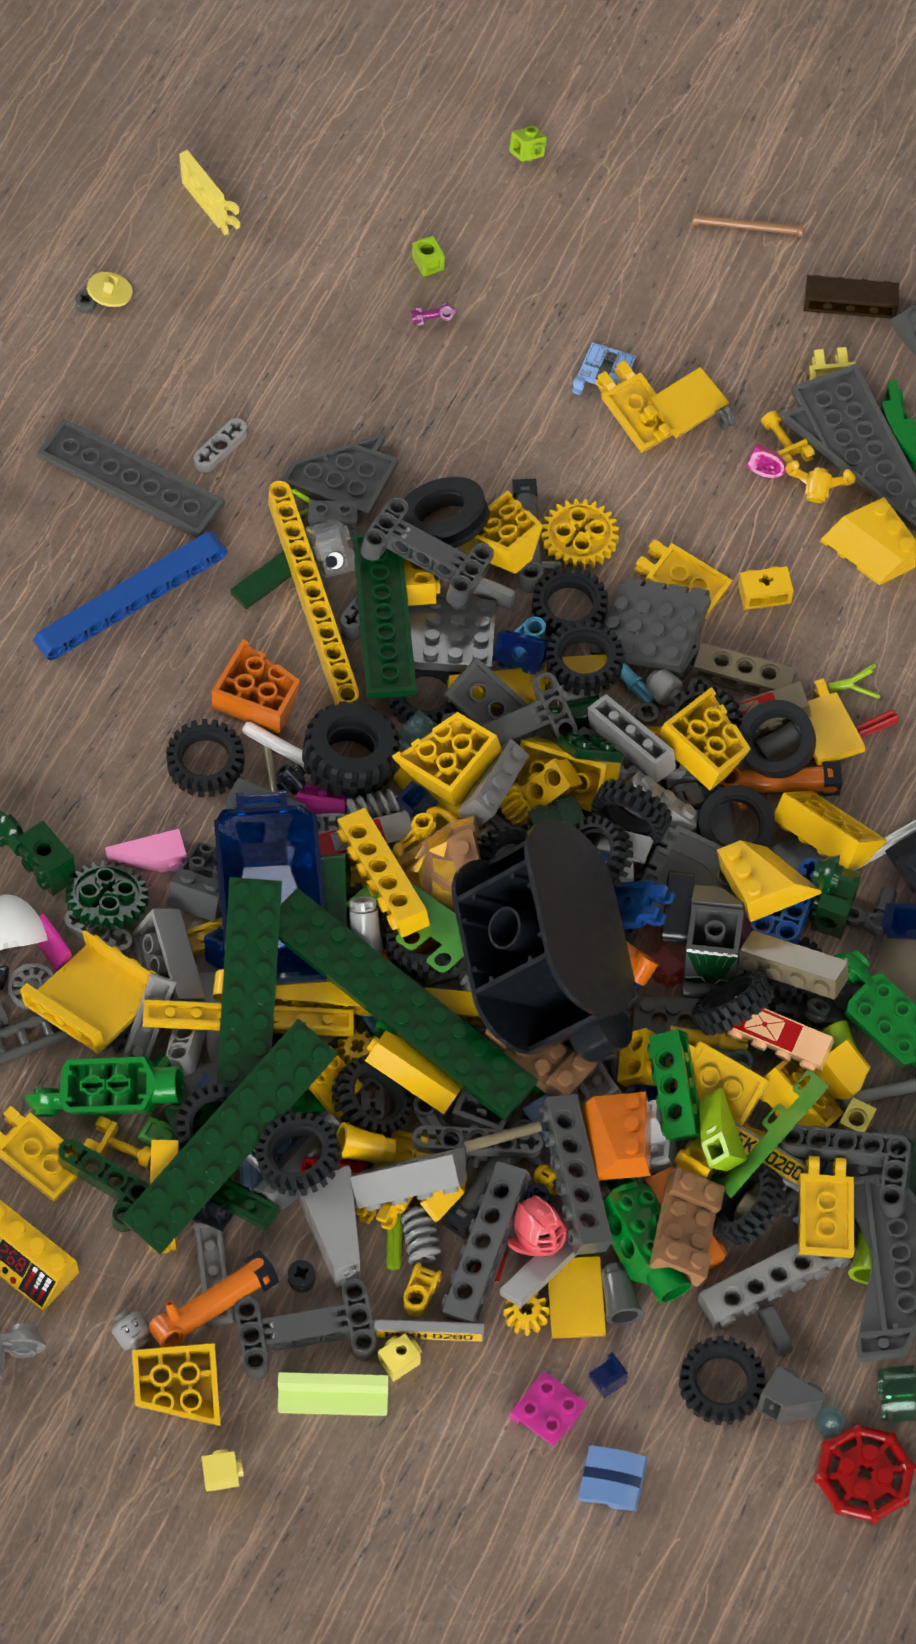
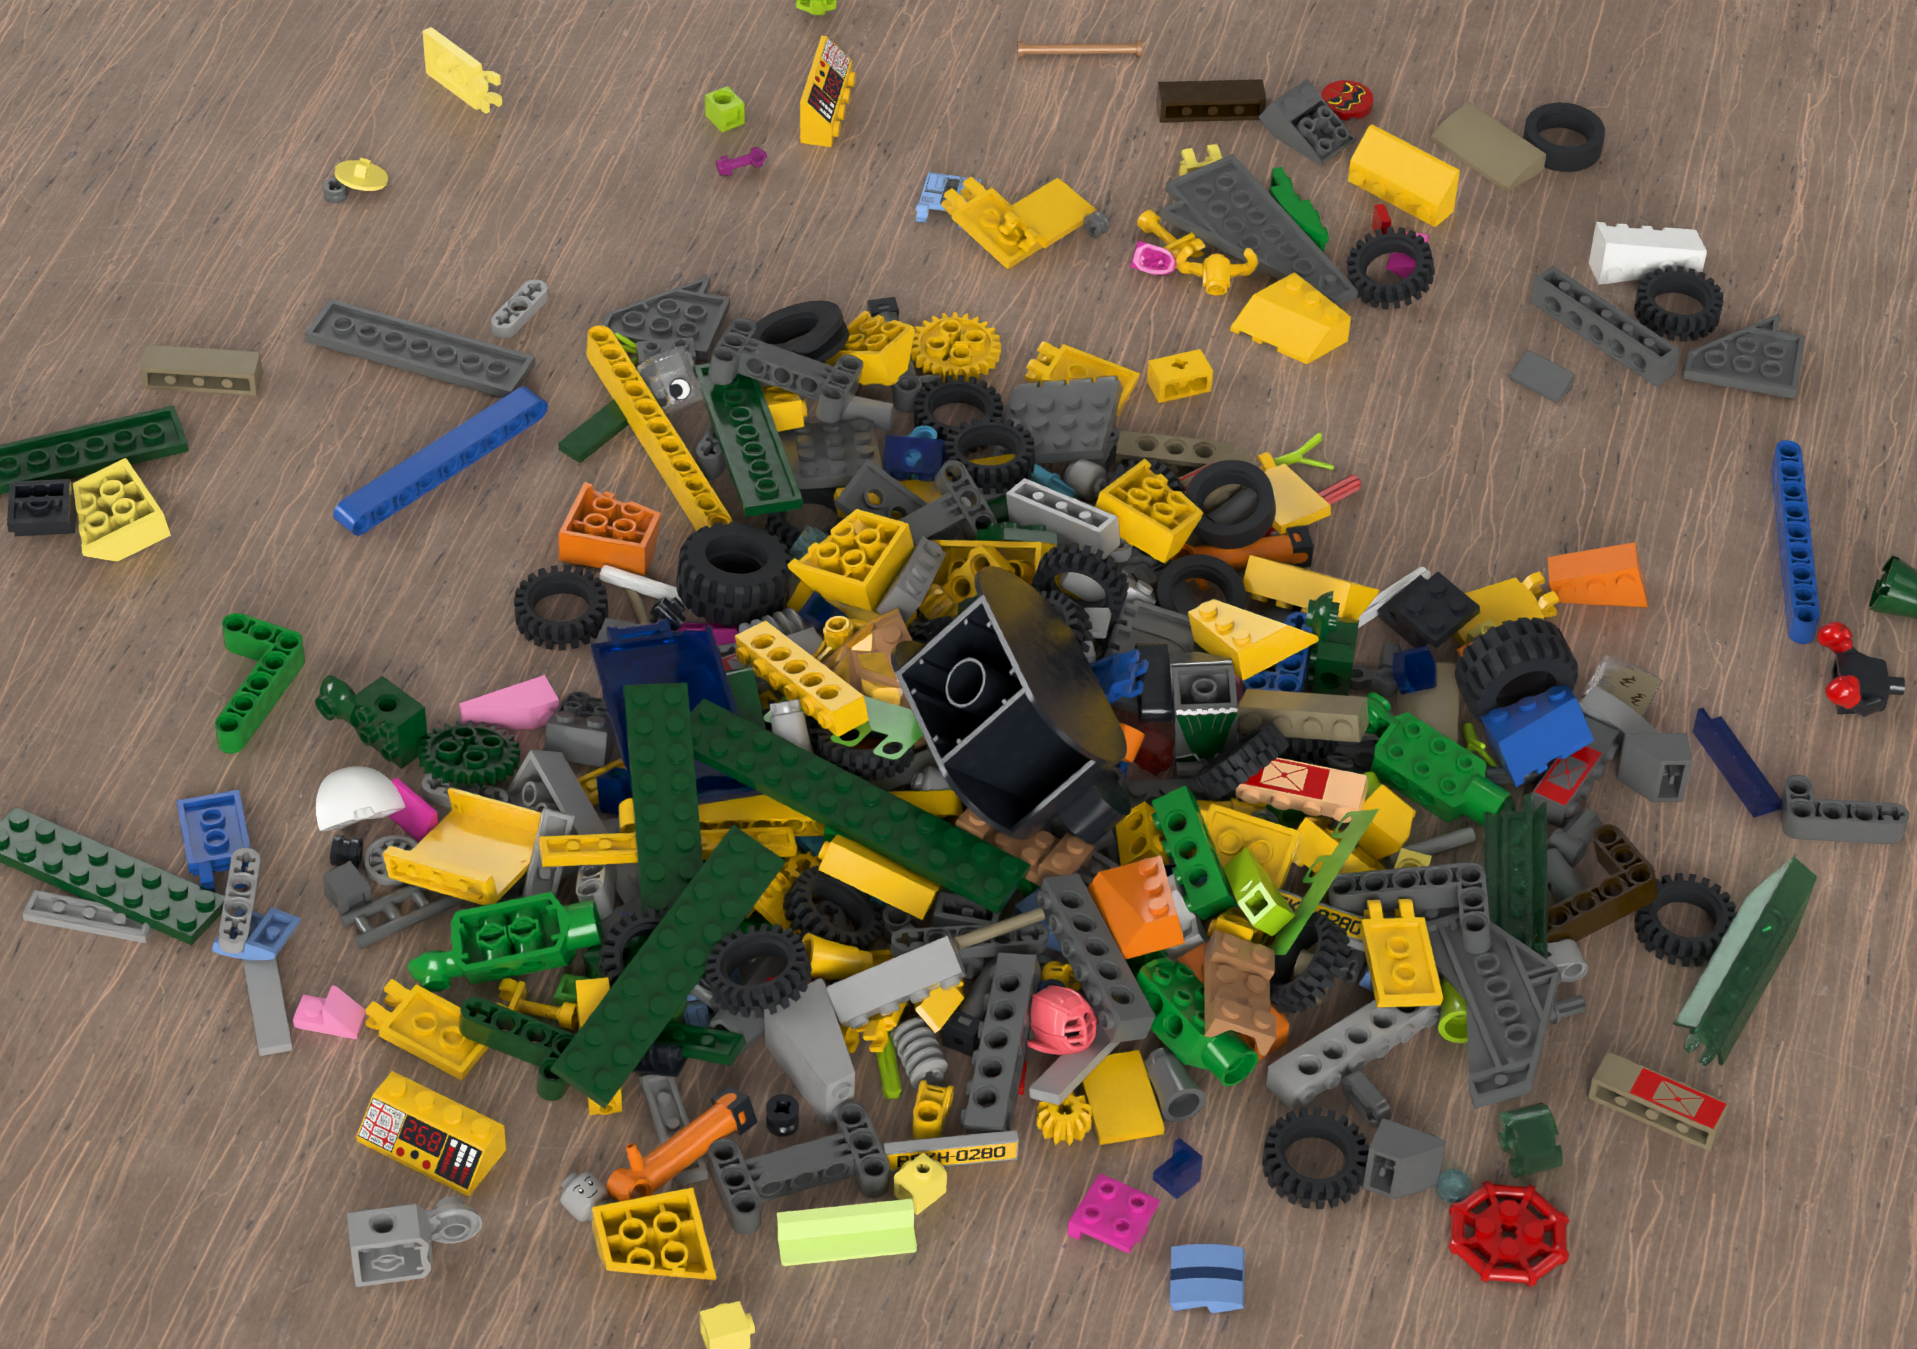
camera: 10 degrees left, 15 degrees down
(516, 253) = (826, 95): none -> yellow slope

